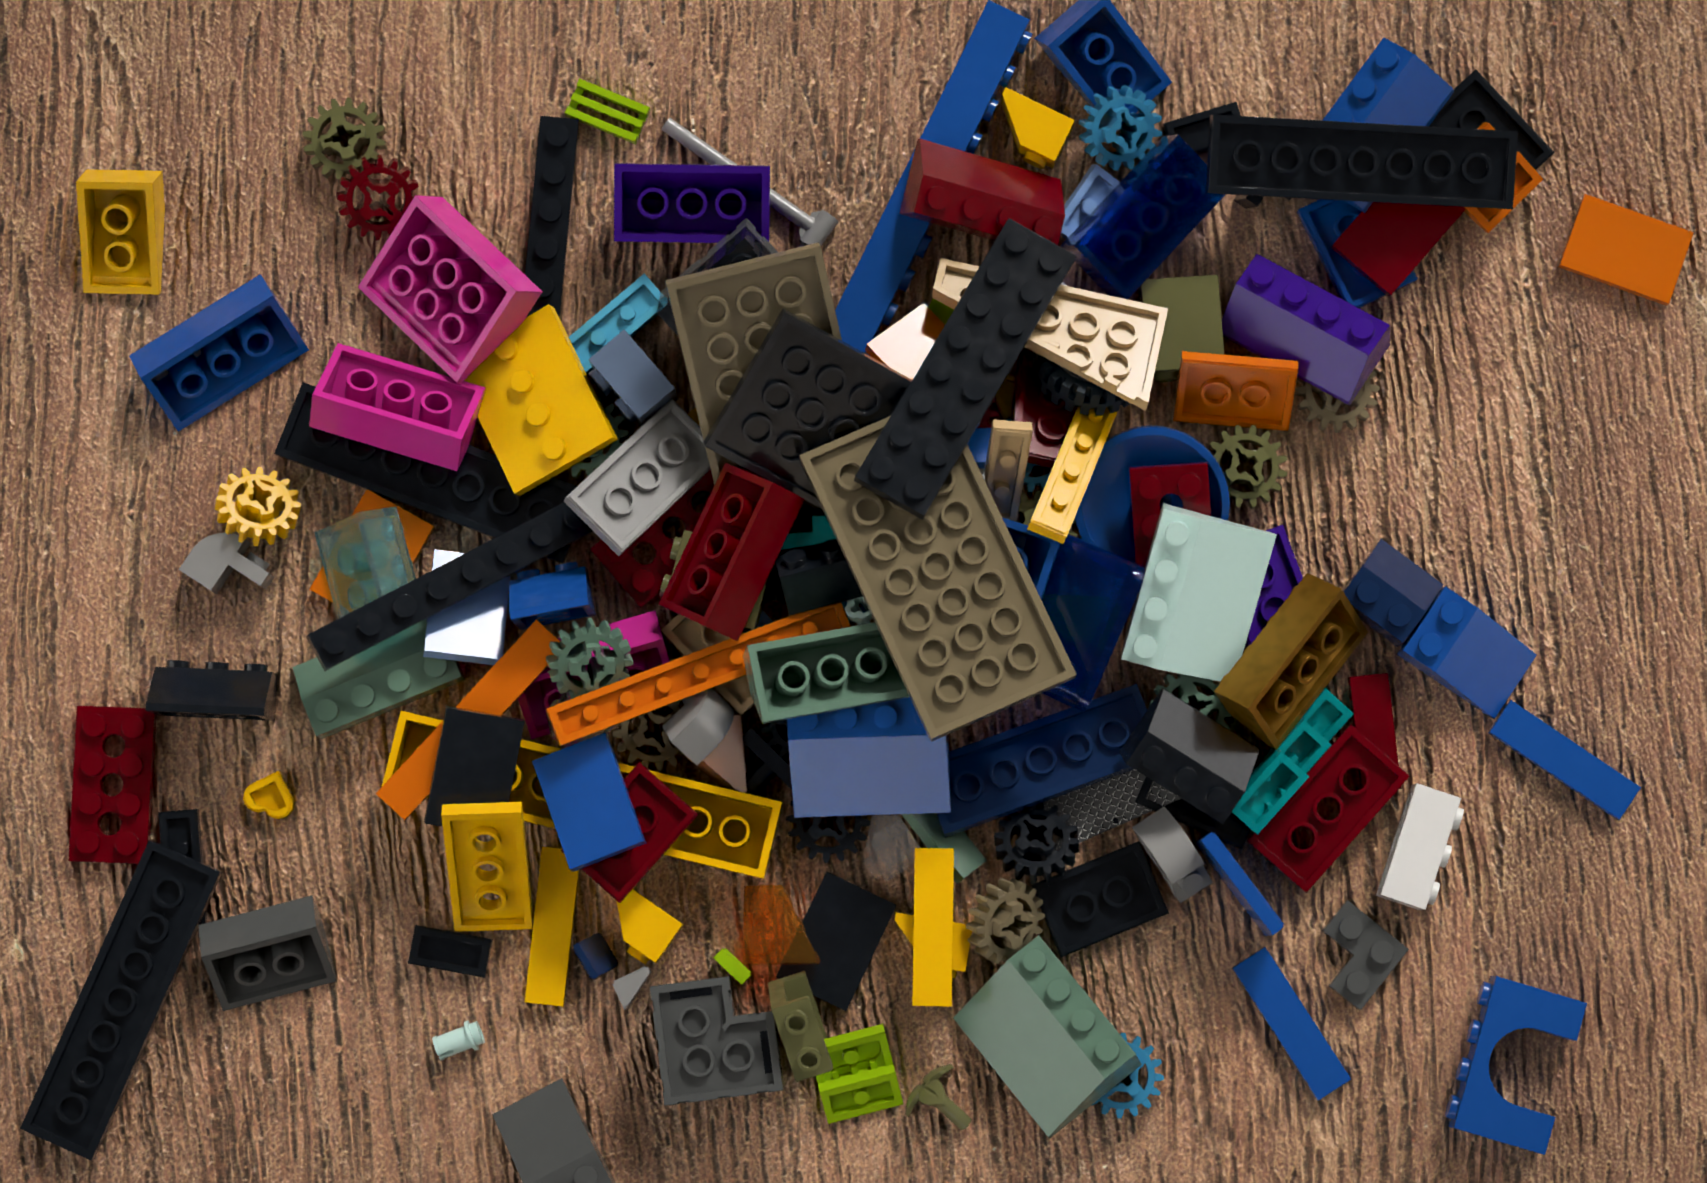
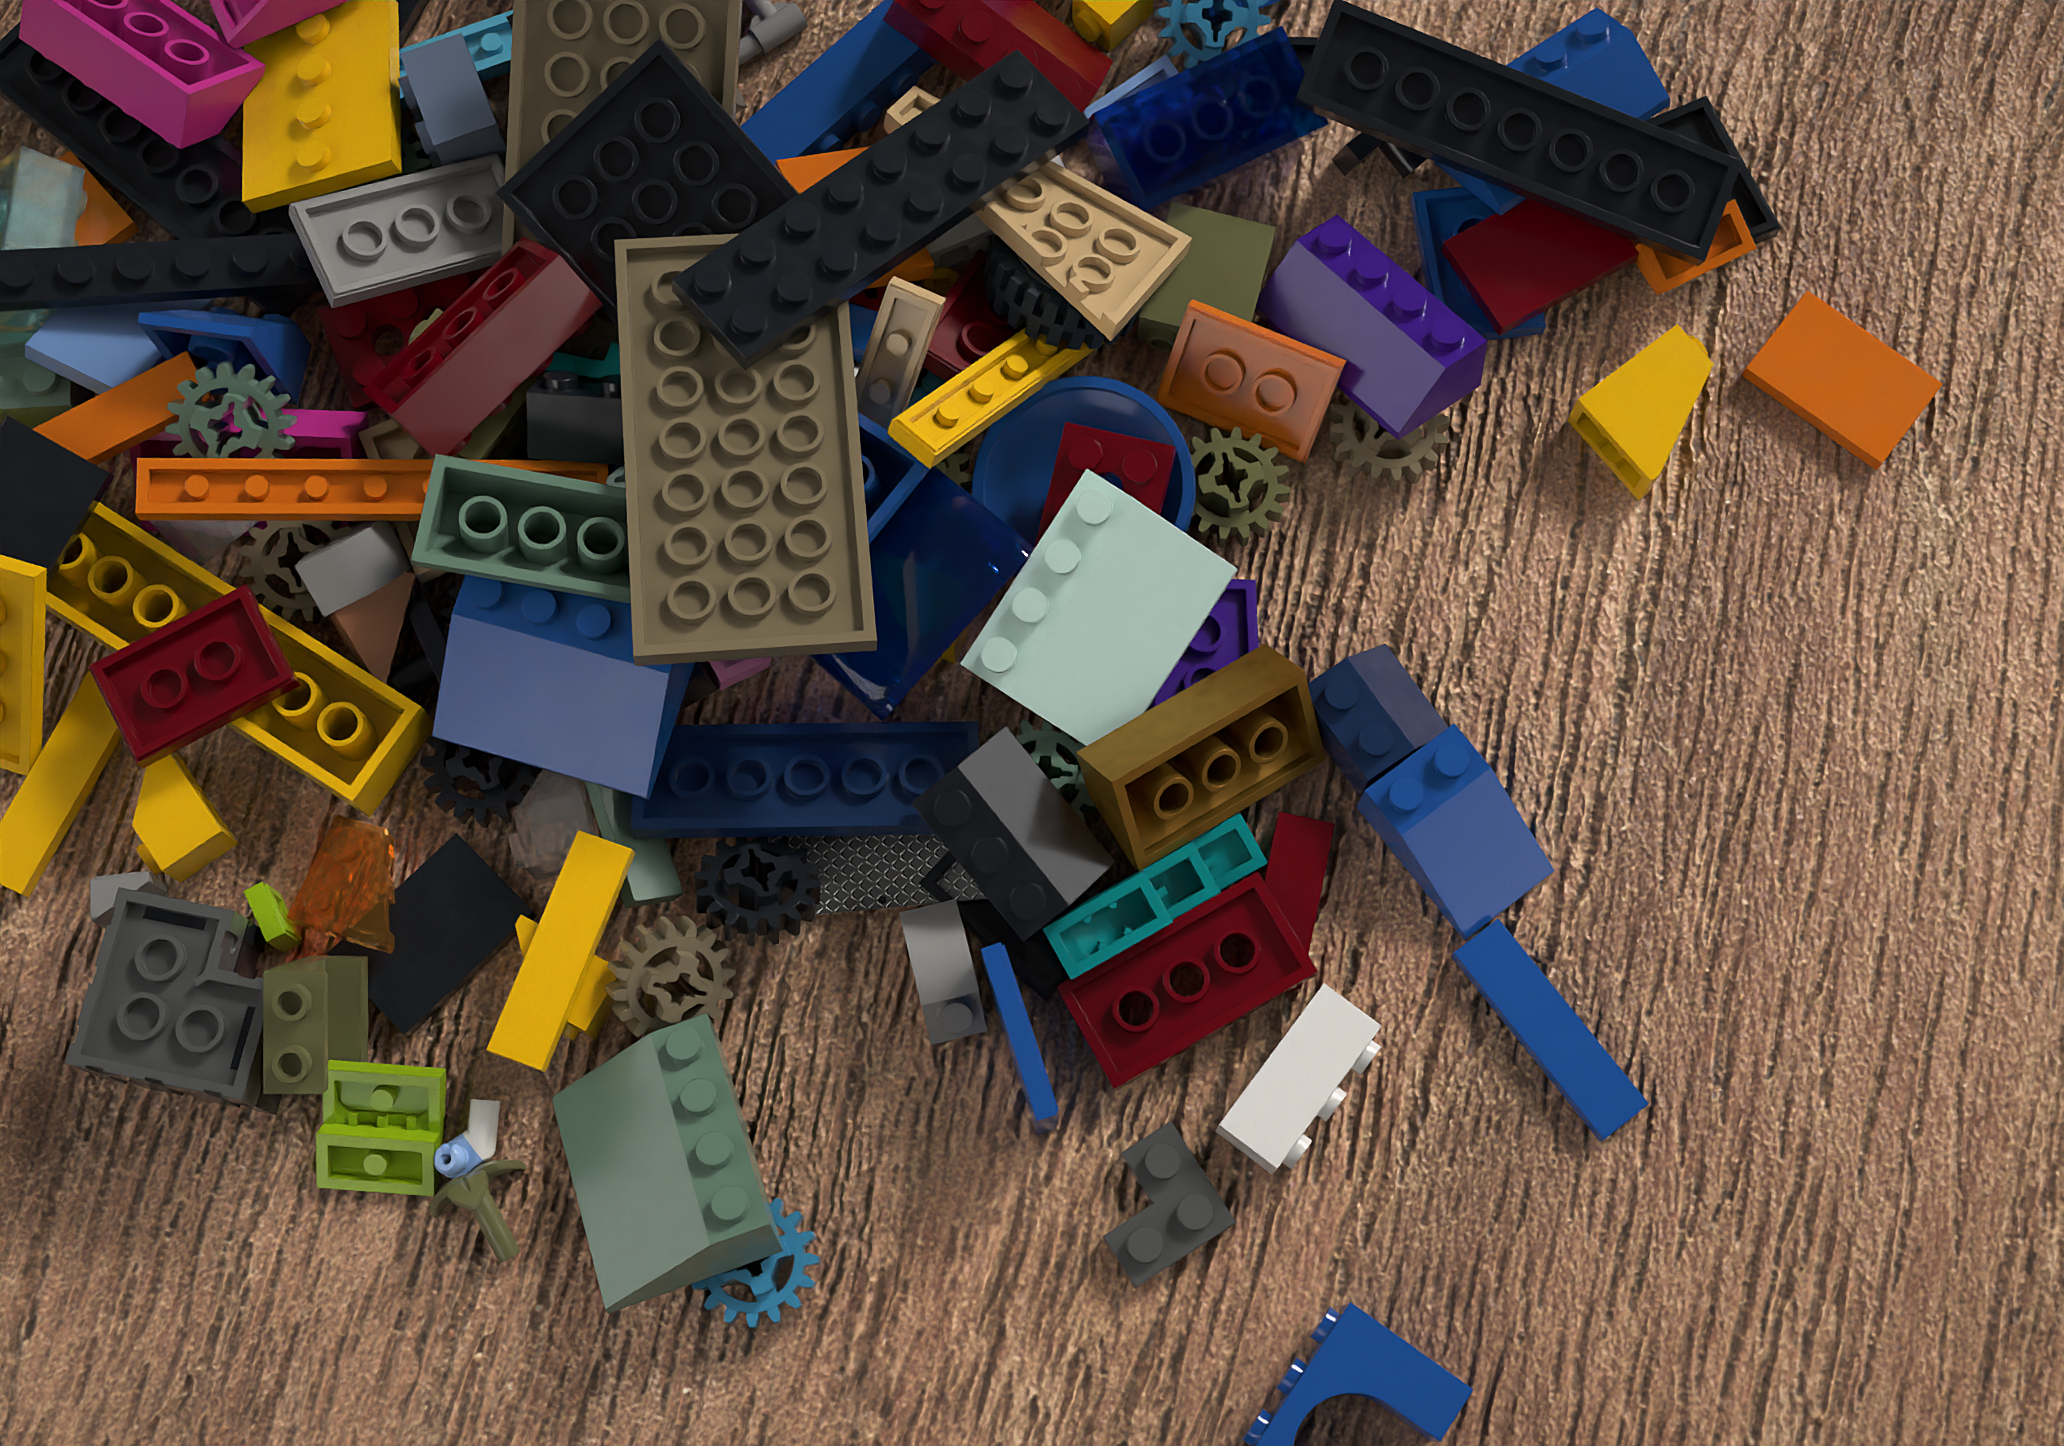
camera: 20 degrees right, 10 degrees down
(589, 802) = (150, 612): blue tile -> none
(595, 955) = (93, 840): dark blue slope -> none
(917, 1063) = (473, 1145): none -> arm
(1100, 899) = (820, 1002): black tile -> none
(1291, 1023) = (1029, 1274): blue tile -> none
(1502, 317) = (1643, 407): none -> yellow slope

